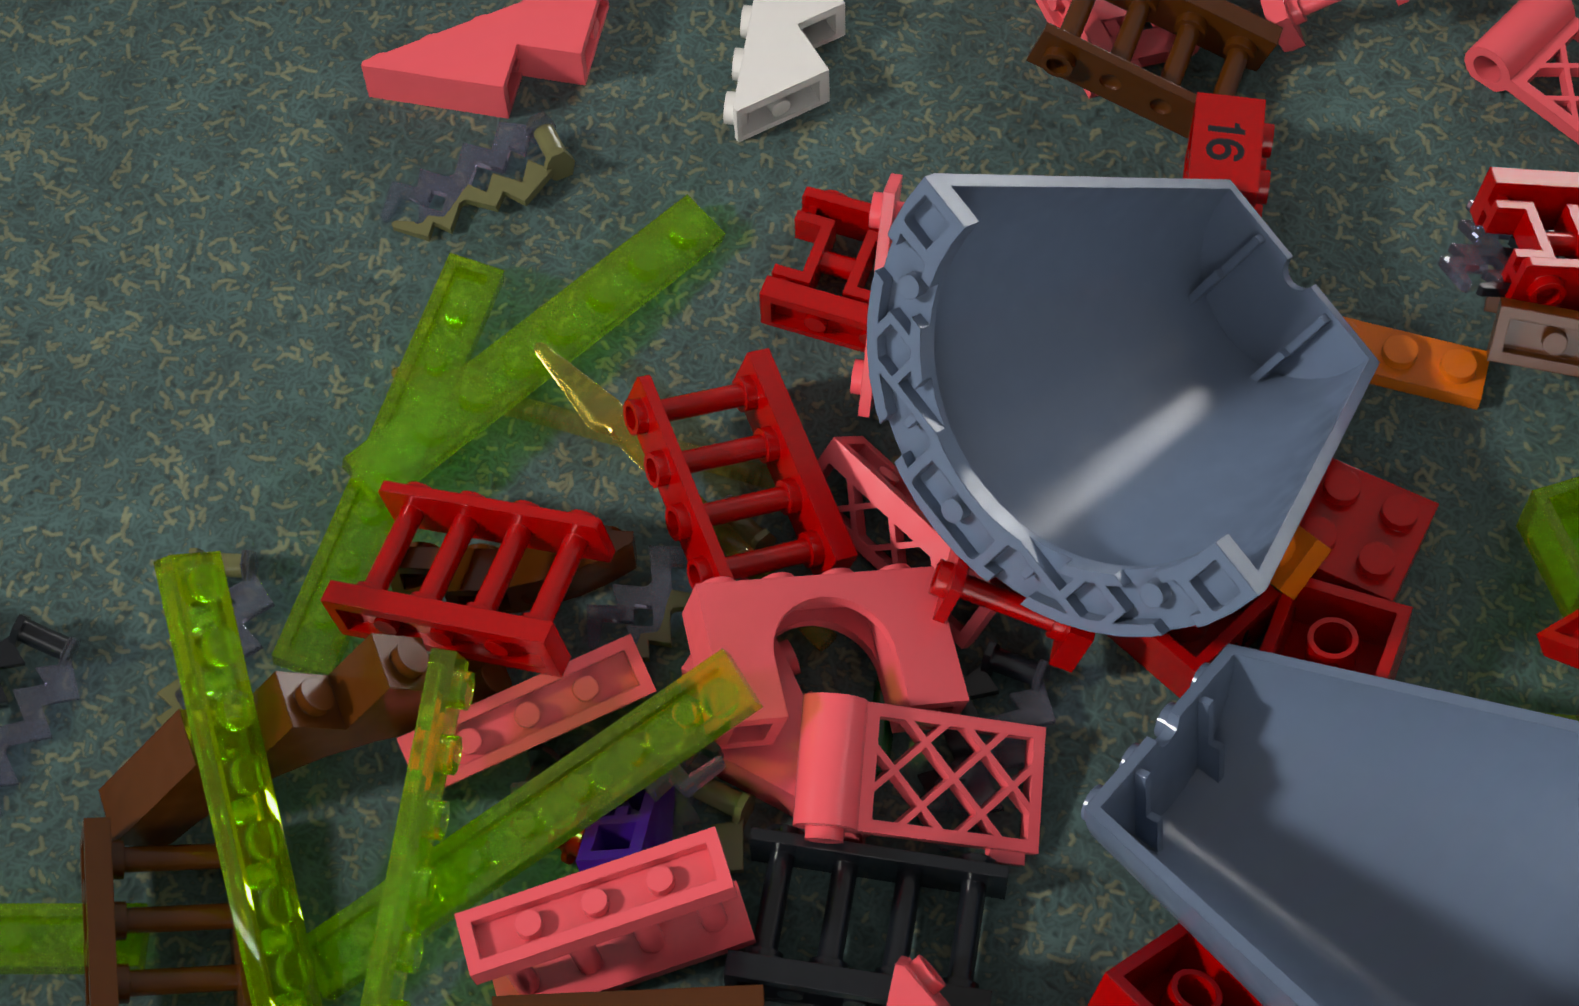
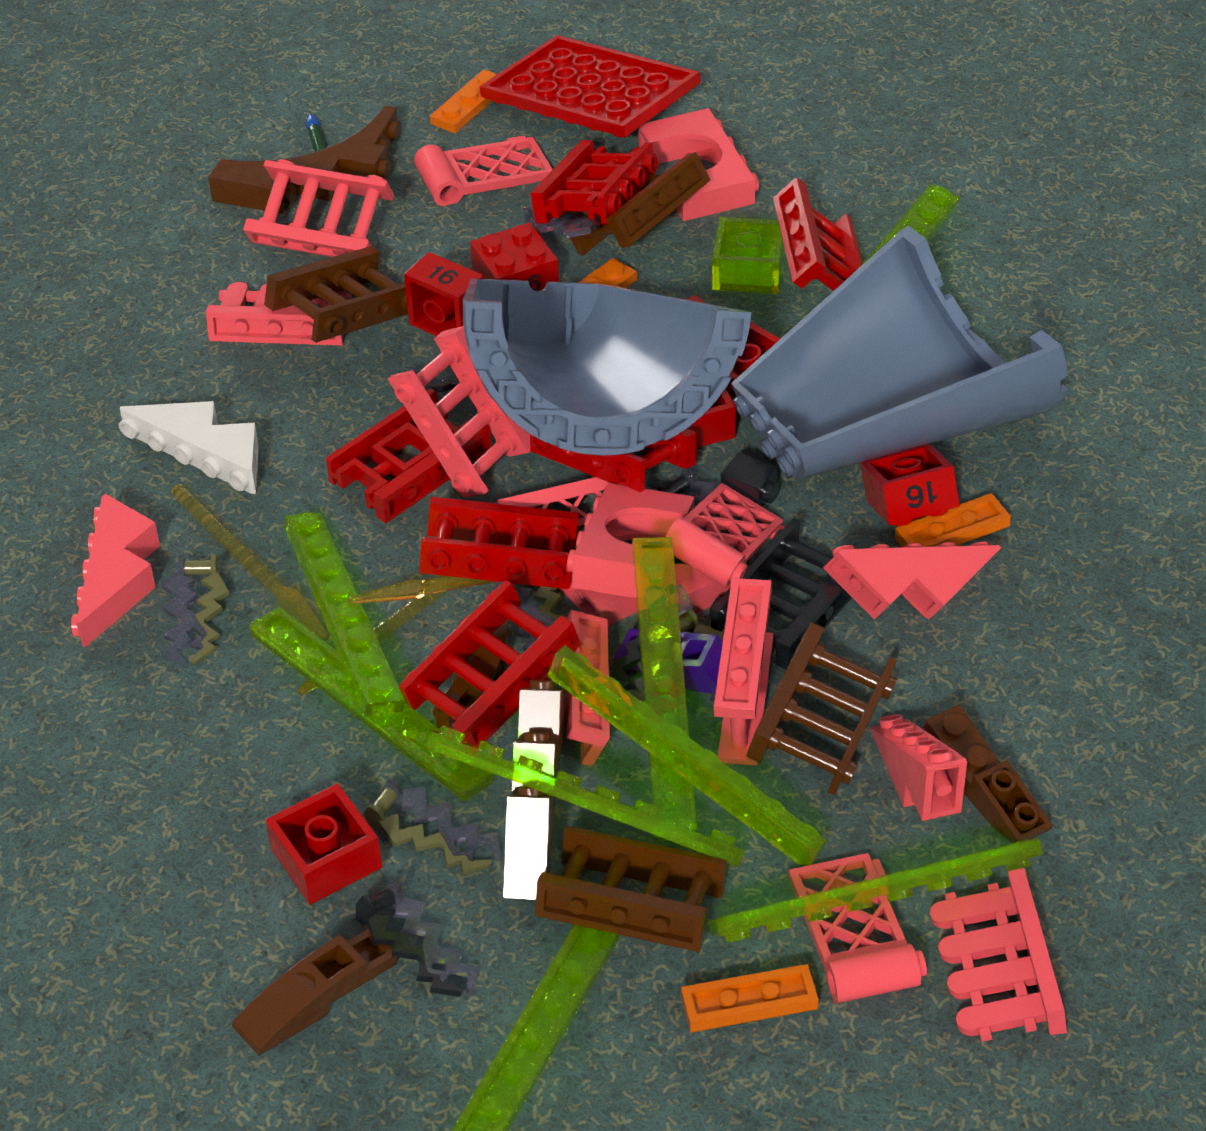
camera: 65 degrees left, 15 degrees down
(106, 526) = (324, 843): none -> red brick
(556, 274) = (287, 598): none -> clear yellow piece
(1078, 760) = (752, 479): none -> black brick
(1374, 227) = (515, 255): none -> red brick

